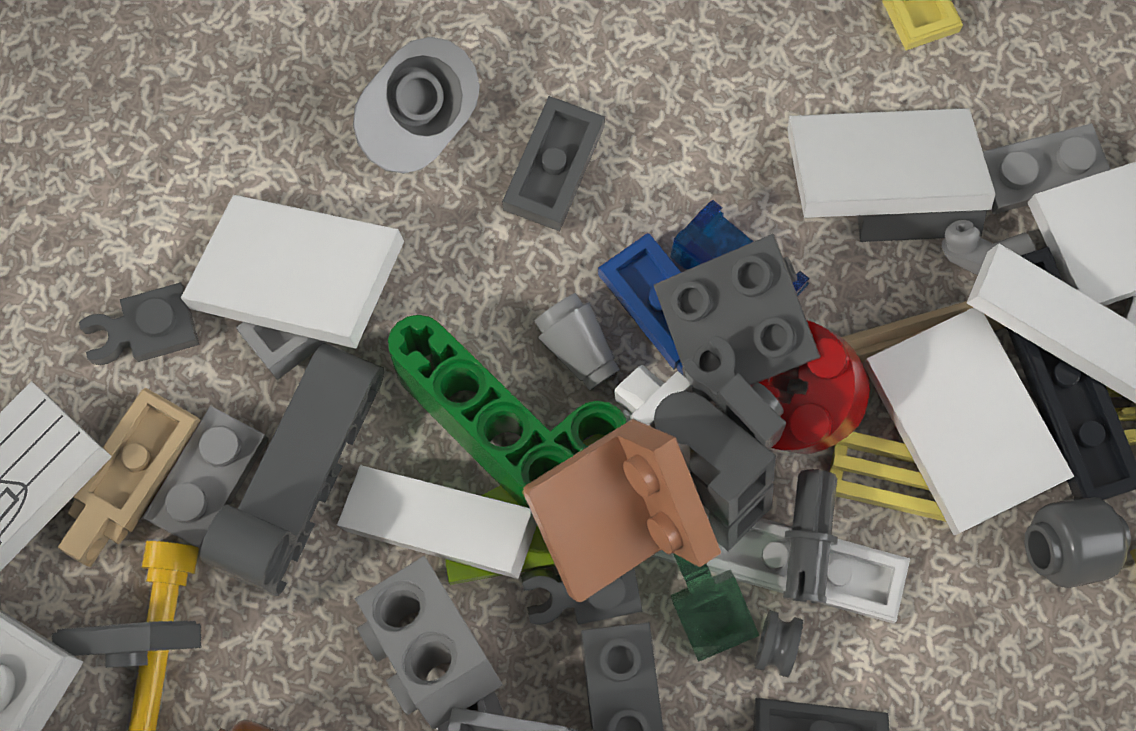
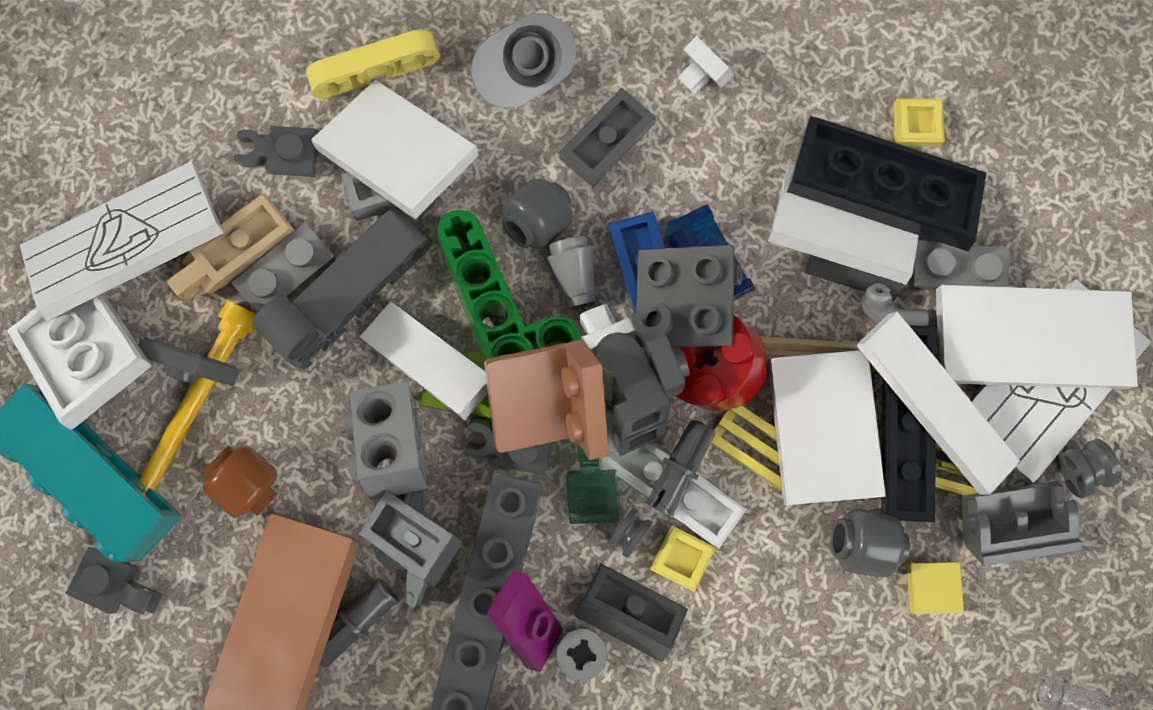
camera: 20 degrees right, 5 degrees up
(206, 185) = (359, 66): none -> light yellow beam
(504, 288) = (537, 214): none -> dark grey head
(640, 34) = (705, 66): none -> white tile
(856, 651) = (682, 558): none -> light yellow tile
(917, 97) = (888, 183): none -> black tile

